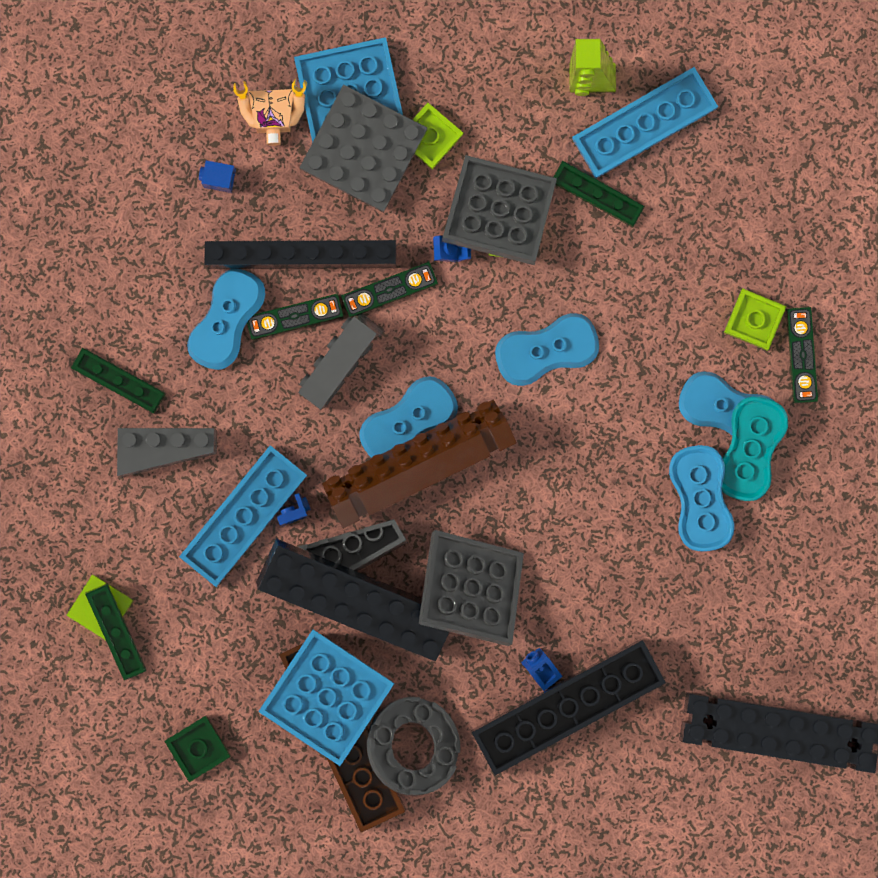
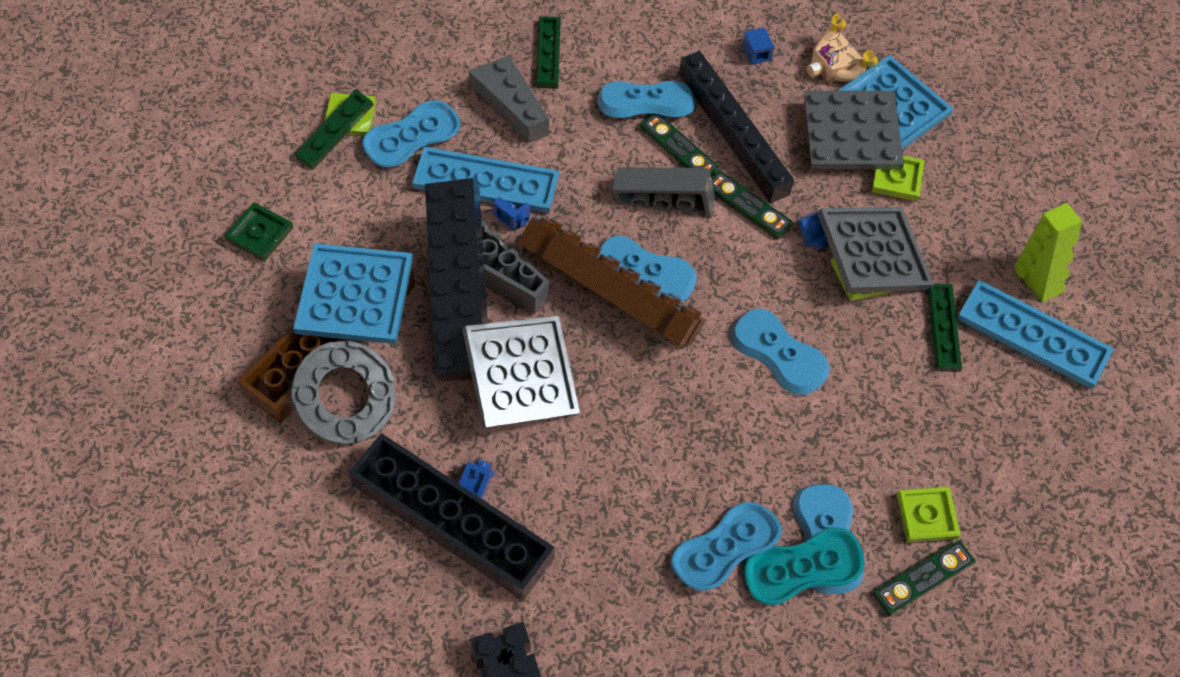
camera: 60 degrees right, 25 degrees down
(154, 542) = (396, 141): none -> dark azure plate

